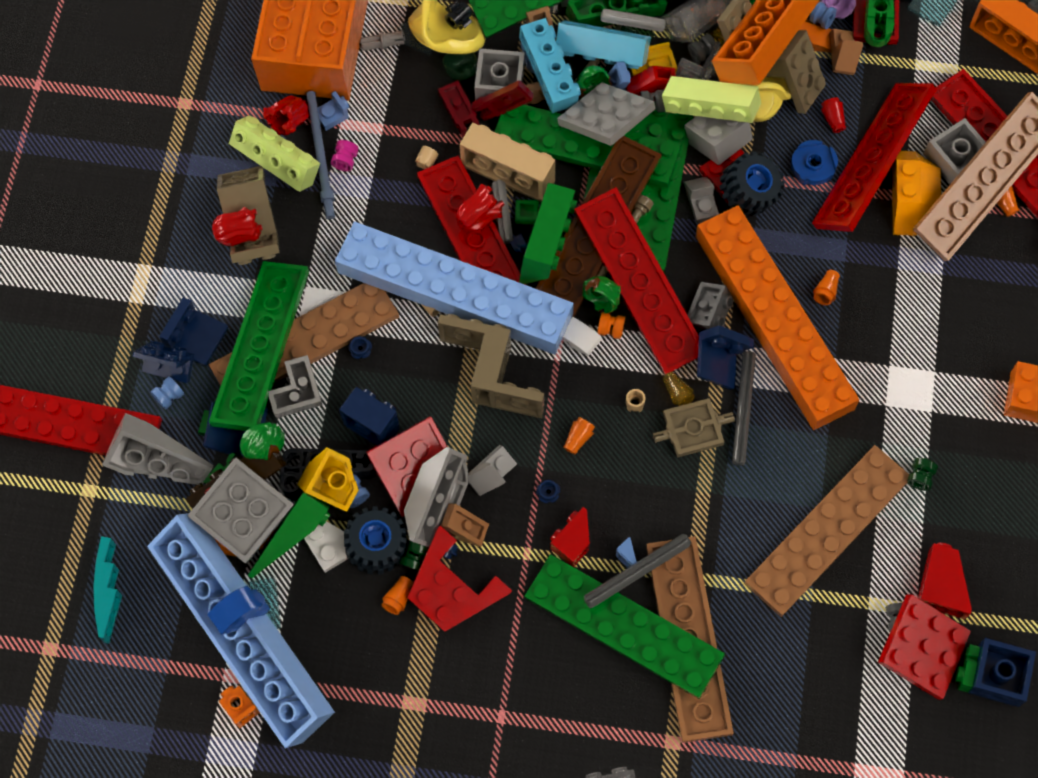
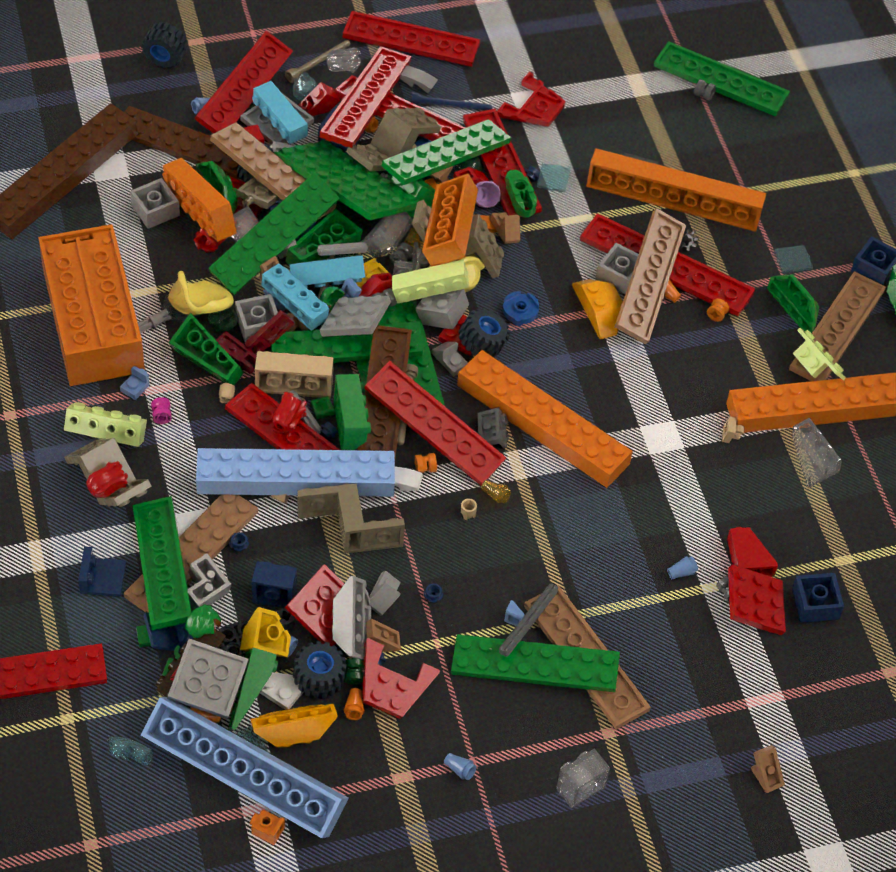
camera: 30 degrees left, 15 degrees down
(105, 596) = (120, 785): teal slope -> none
(126, 550) = (125, 747): none -> clear light blue slope
(149, 451) = (109, 668): light grey wedge -> none
(166, 361) = (89, 601): dark blue bracket -> none
(168, 391) = (100, 623): medium blue wheel -> none
(237, 609) = (241, 745): blue brick -> none
(286, 114) = (102, 394): red piece -> none
(317, 594) = (295, 724): none -> light orange wedge
(326, 194) = (159, 442): sand blue bar -> none
(421, 97) = (202, 349): none -> green wedge
(458, 15) = (206, 284): black gear -> none
(483, 720) = (462, 767): none -> medium blue cone
(572, 541) = (470, 617): red slope -> none
(579, 434) = (438, 544): orange cone -> none
(602, 292) = (411, 440): green hair -> none
(693, 427) = (520, 513): dark tan plate -> none
(718, 355) = (513, 451): dark blue bracket -> none
(743, 408) = (550, 488): dark grey axle -> none
(823, 15) = (481, 206): medium blue wheel -> none
(826, 290) = (571, 388): orange cone -> none
(827, 531) = (650, 551): medium nougat plate -> none
(834, 114) = (519, 271): red cone -> none
(855, 569) = (684, 567): none -> medium blue cone
(874, 157) = (563, 289): red plate -> none
(922, 473) = (698, 486): dark green wheel -> none
(966, 674) = (793, 608): green plate -> none
(998, 412) = (731, 430): none -> tan tile

